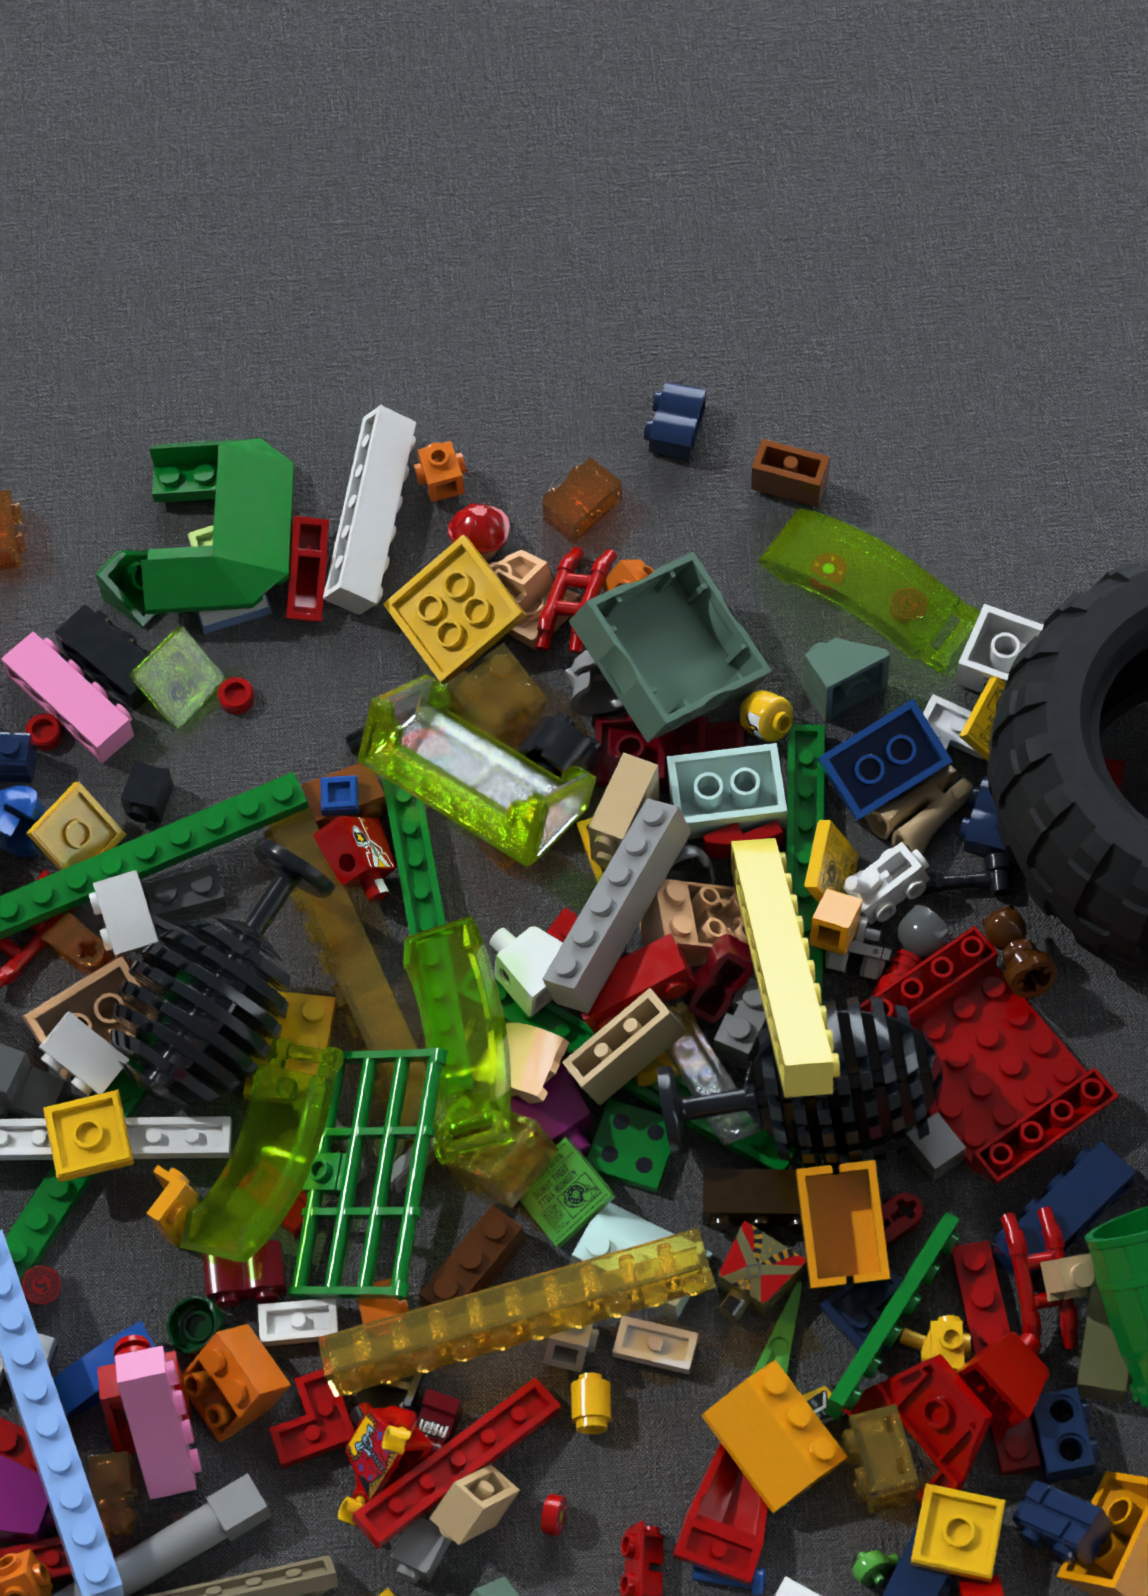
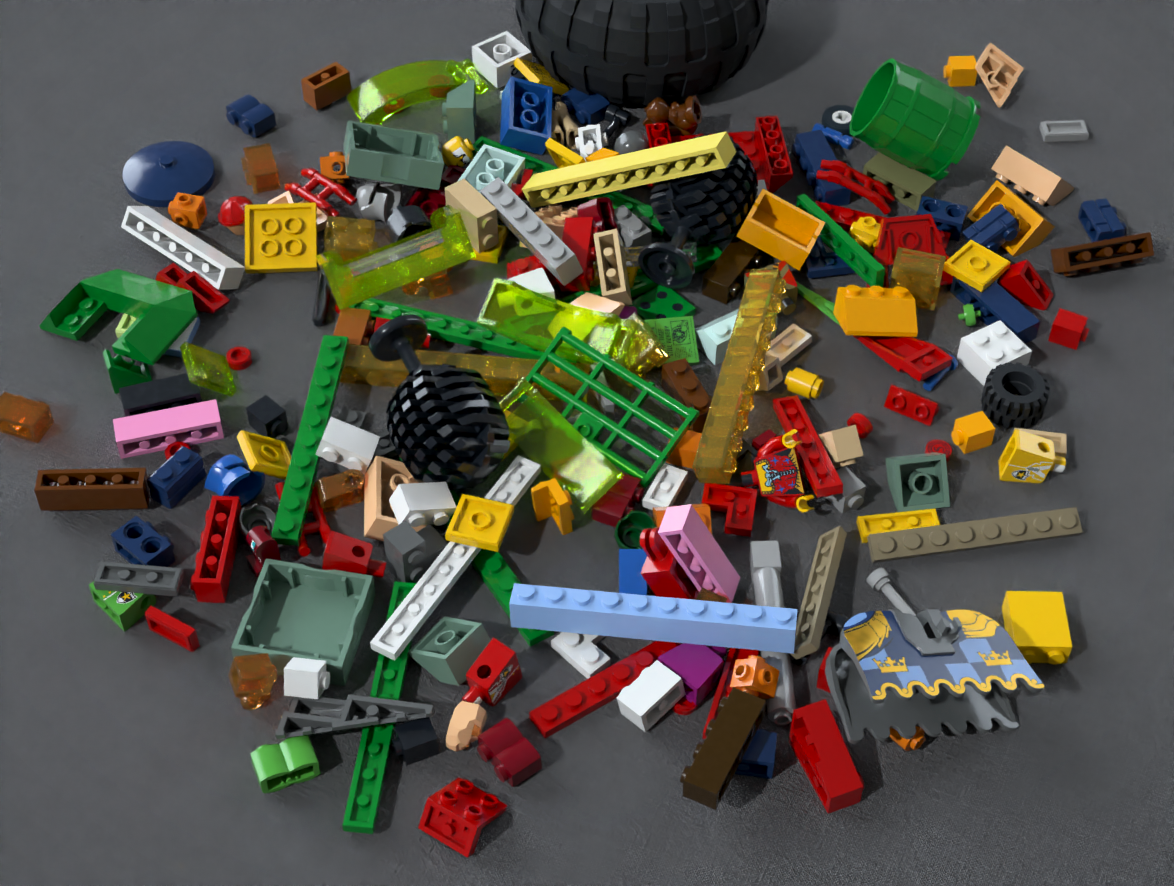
camera: 65 degrees left, 15 degrees down
(339, 795) = (354, 325): blue tile -> none
(510, 400) = (166, 168): none -> dark blue dish
(1007, 1377) = (902, 206): red torso -> none
(1068, 1277) = (867, 163): tan brick -> none

